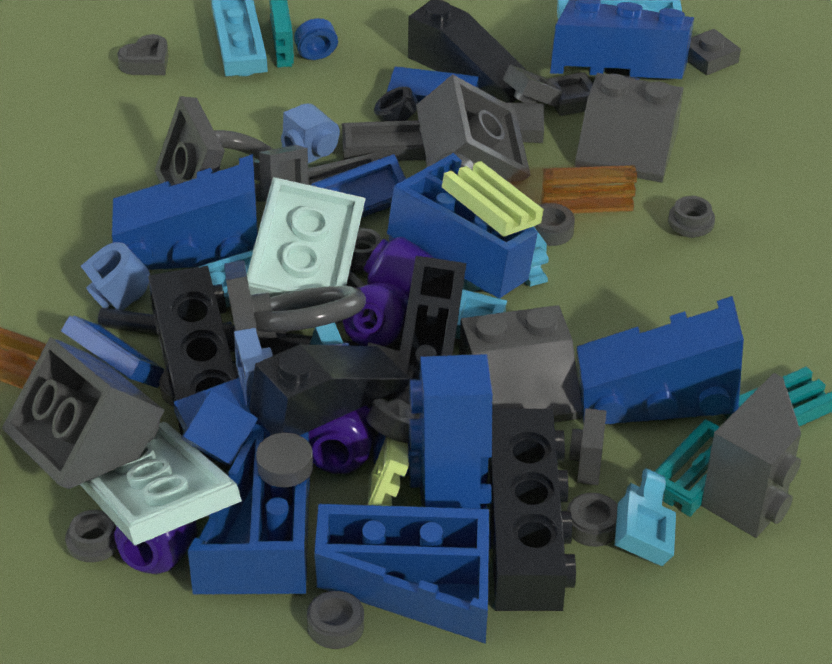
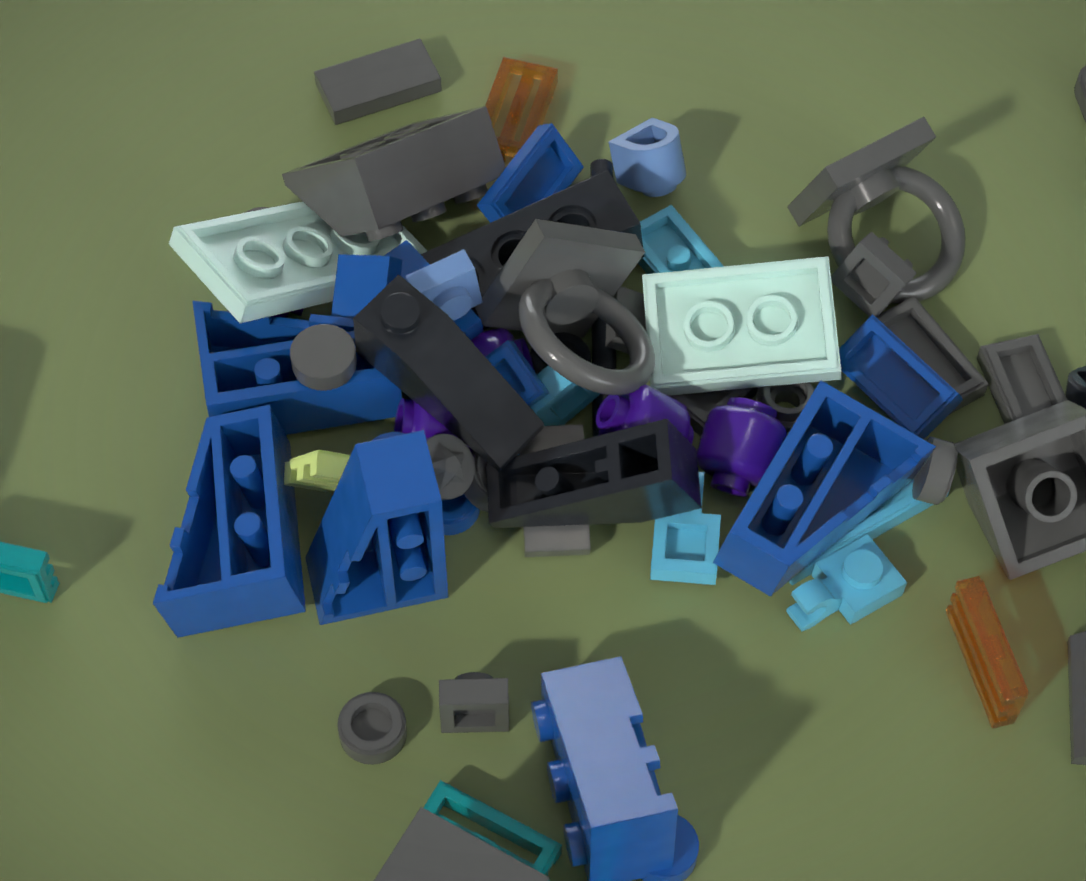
camera: 80 degrees right, 15 degrees up
(190, 220) = (755, 196): blue wedge -> none
(311, 129) = (994, 297): medium blue plate -> none
(335, 619) = (171, 479): dark grey tile -> none
(493, 199) = (857, 461): yellowish green tile -> none
(527, 359) = (597, 600): dark grey slope -> none
(527, 512) = (328, 624): black brick -> none
(556, 224) = (916, 620): dark grey tile -> none
(643, 522) = (352, 780): medium azure plate -> none
(692, 216) = (984, 785): dark grey plate -> none

